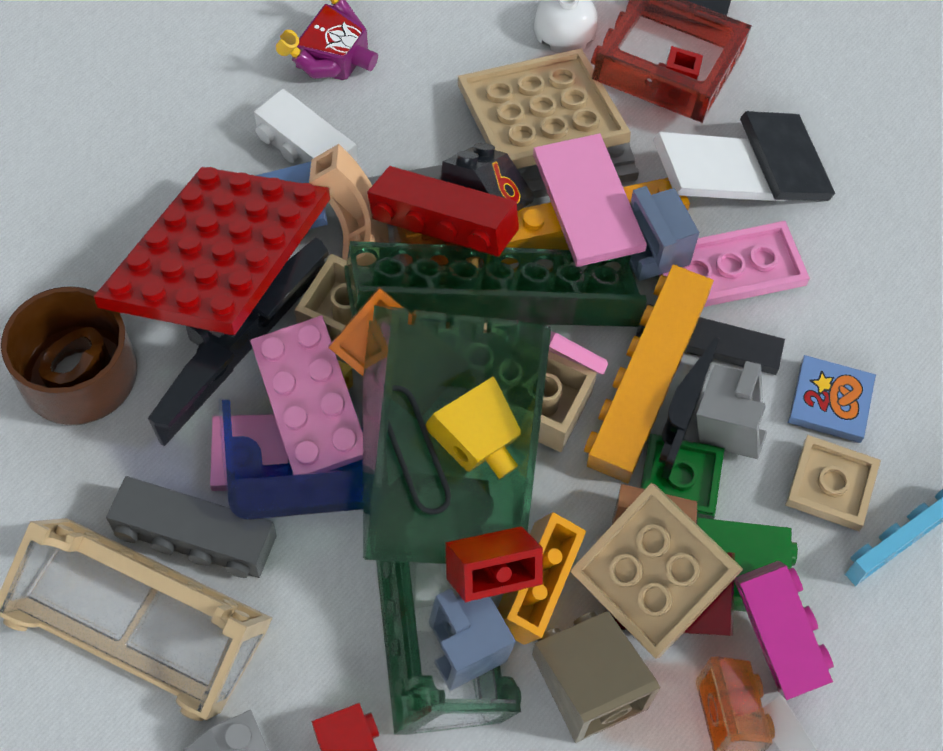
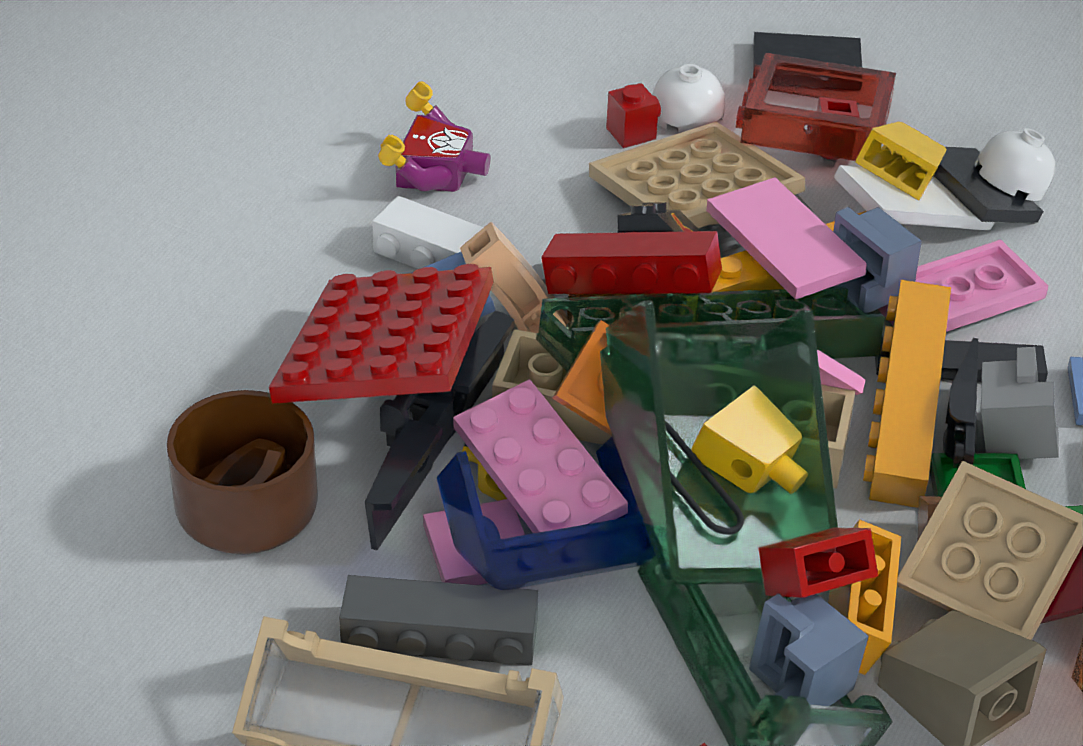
camera: 10 degrees left, 20 degrees down
(512, 29) = (632, 115): none -> red brick
(720, 129) = (904, 160): none -> yellow torso
(825, 144) = (1018, 162): none -> white cylinder

